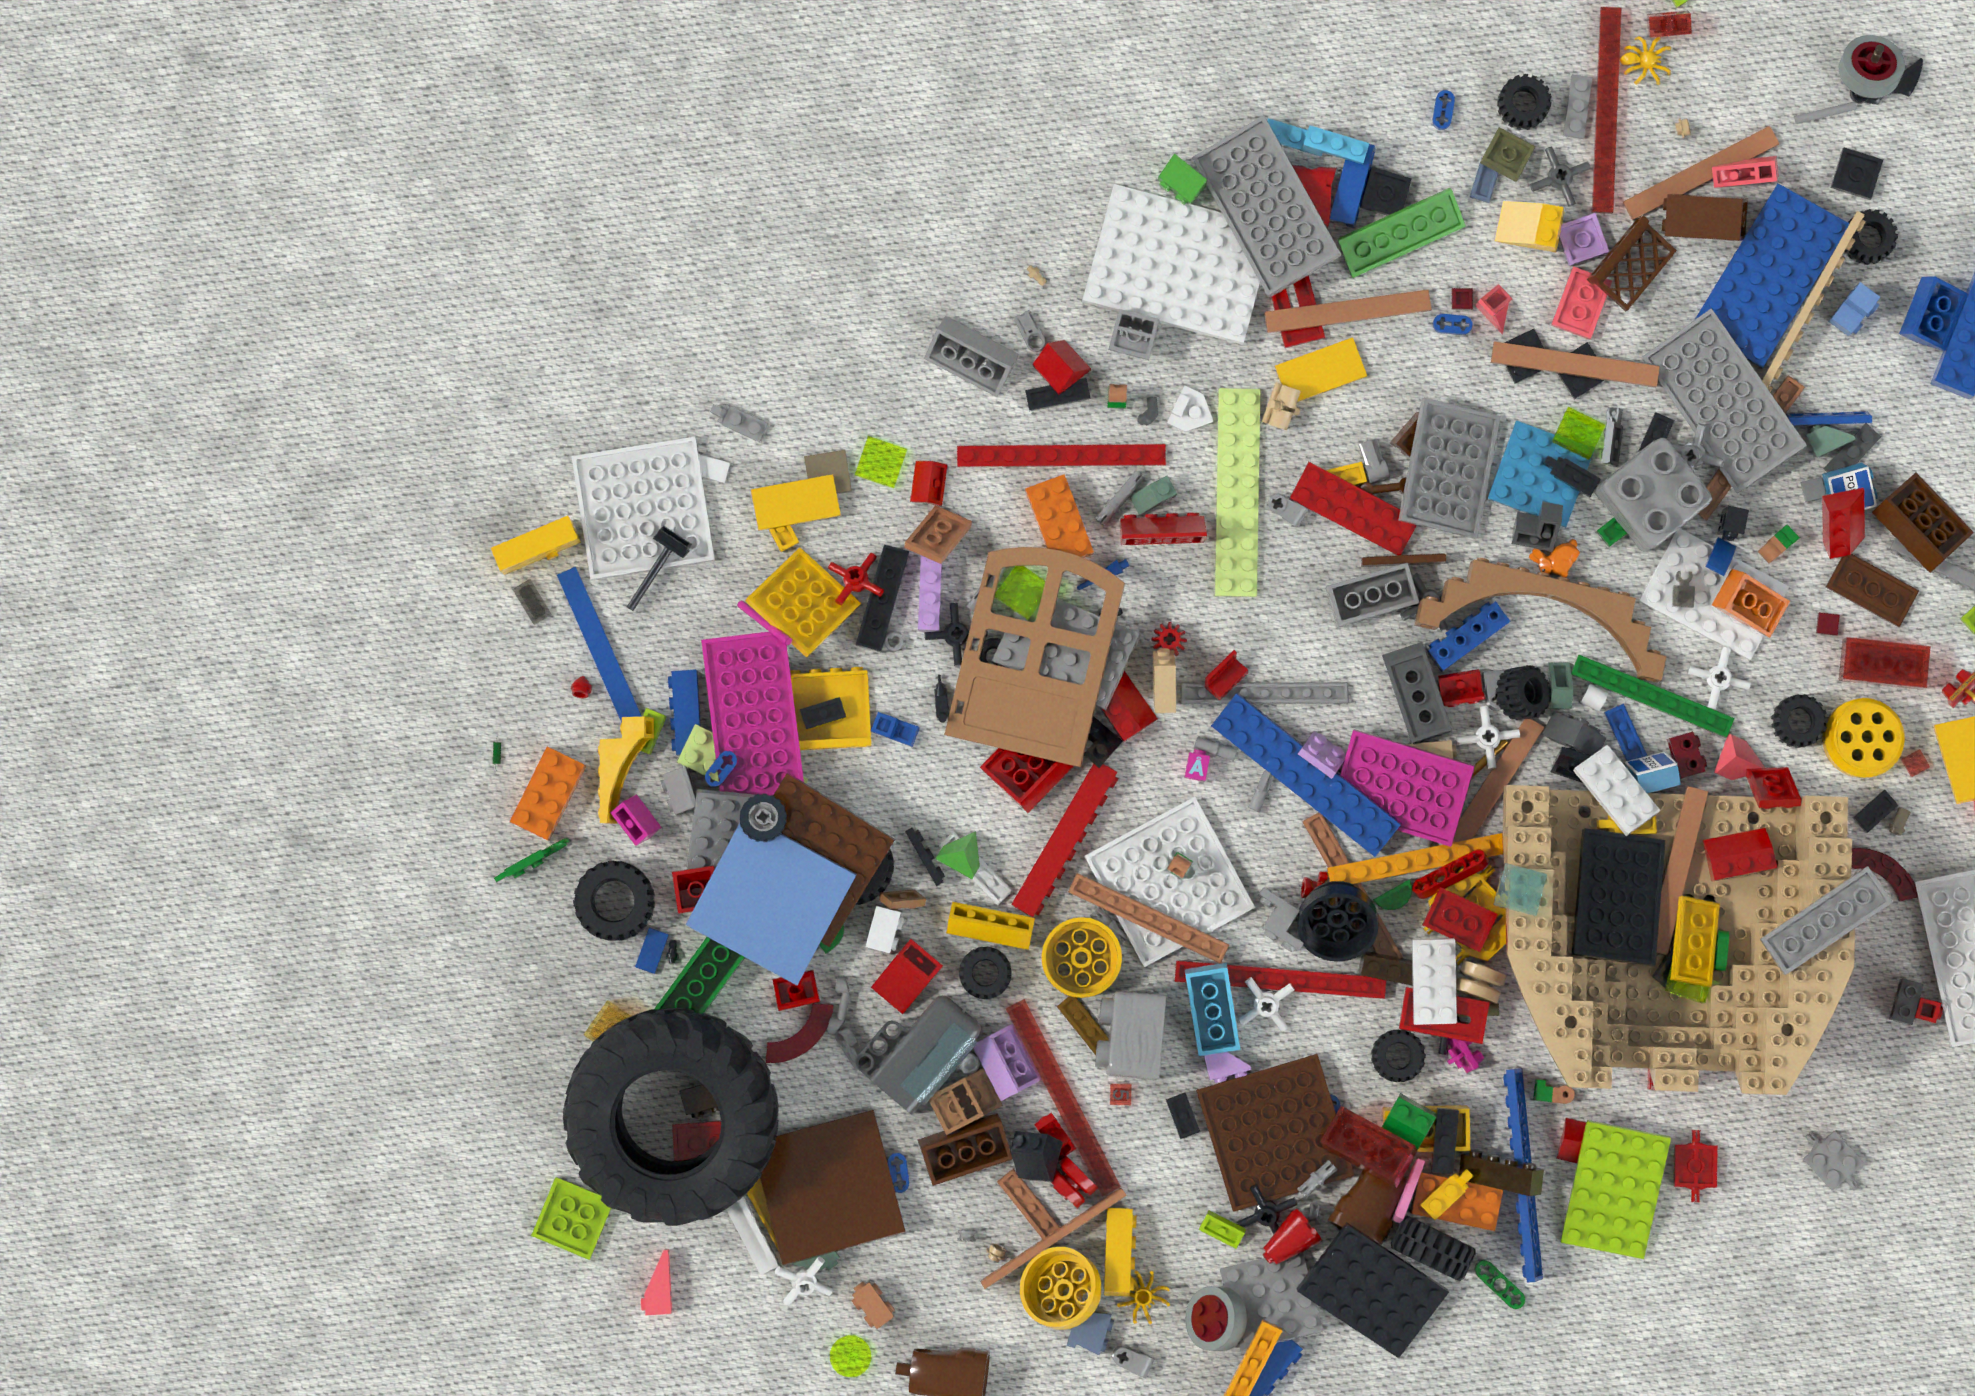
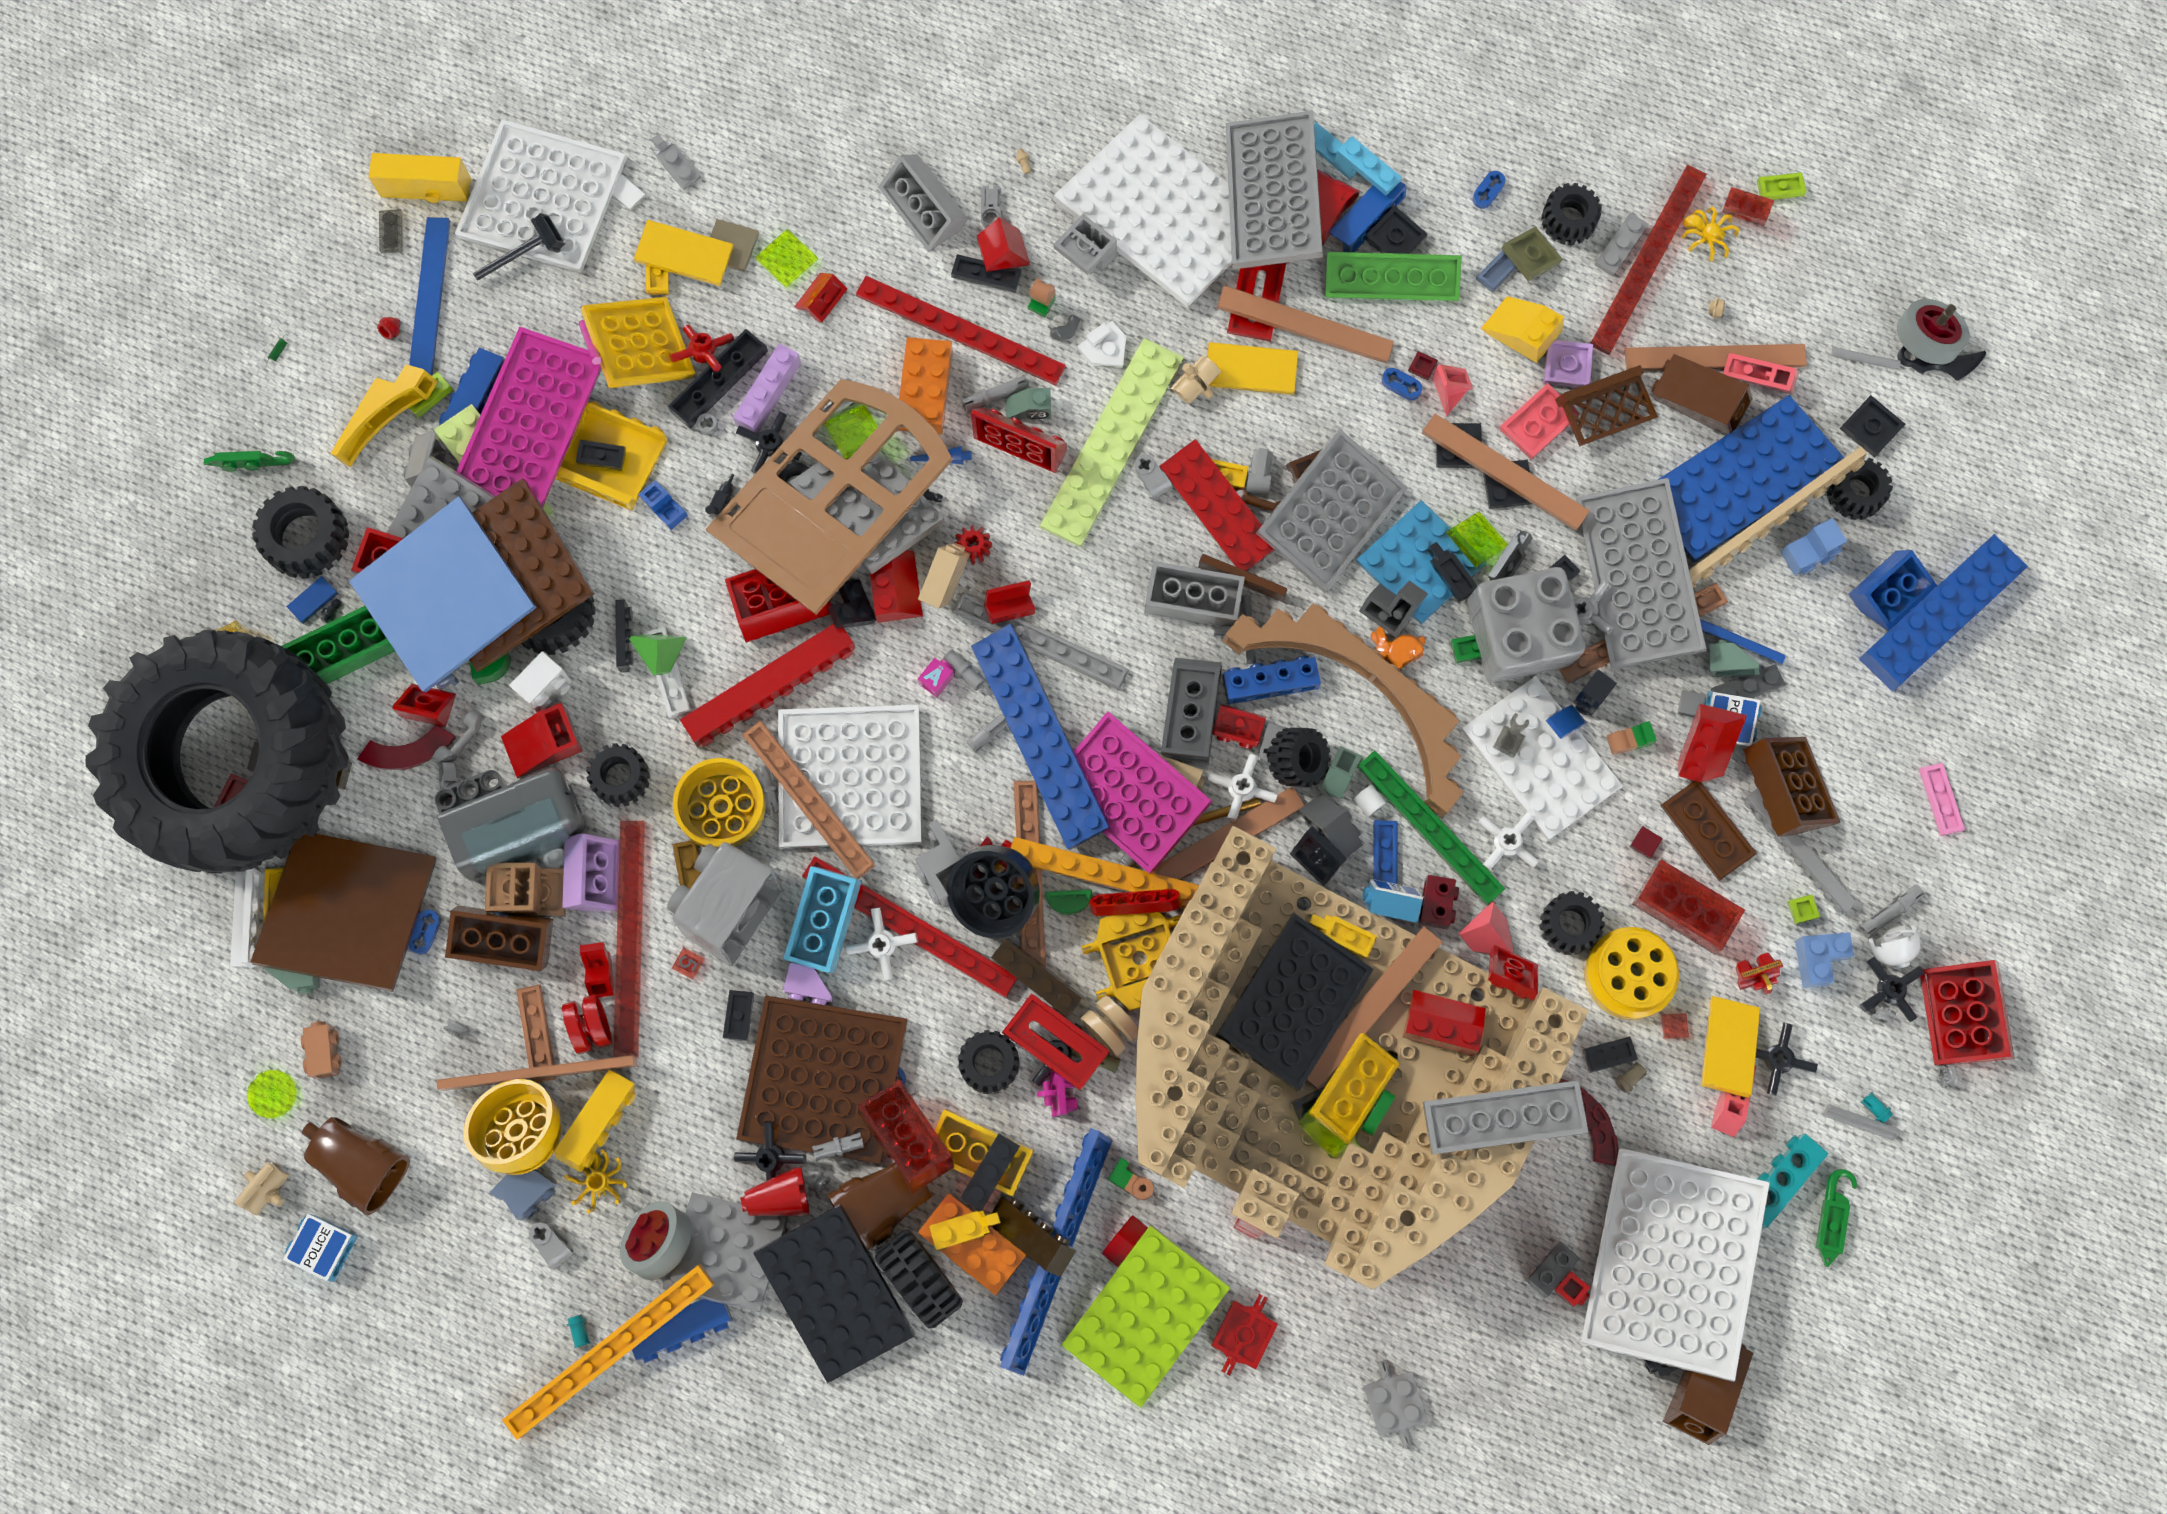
camera: 25 degrees right, 10 degrees down
(548, 793) = (299, 405): orange brick -> none
(571, 1218) = (75, 820): lime plate -> none
(636, 820) = (366, 468): dark pink brick -> none
(658, 1293) = (121, 930): coral slope -> none
(724, 772) = (467, 450): blue beam -> none
(763, 818) = (472, 505): black wheel -> none
(803, 1281) = (265, 991): white bar -> none
(902, 899) = (581, 666): medium nougat plate -> none
(938, 534) = (800, 339): nougat plate -> none
(990, 925) = (648, 731): yellow brick -> none
(995, 1254) = (473, 1063): tan plate -> none
(1035, 1155) = (563, 977): black slope -> none
(1179, 865) = (865, 760): nougat leg -> none
(1182, 180) = (1205, 135): bright green slope -> none
(1222, 1229) = (716, 1152): lime plate -> none
(1322, 754) = (1065, 722): lavender plate -> none
(1408, 1190) = (925, 1204): bright pink tile -> none
(1409, 1120) = (962, 1130): green slope -> none
(1434, 981) = (1062, 999): white plate -> none
(1459, 919) = (1120, 950): red plate -> none
(1484, 1278) = (986, 1374): green beam -> none
(1520, 889) = (1188, 924): clear light blue plate -> none
(1557, 183) = (1569, 301): dark grey bar -> none
(1616, 790) = (1346, 894): white plate -> none
(1750, 602) = (1576, 779): orange slope -> none

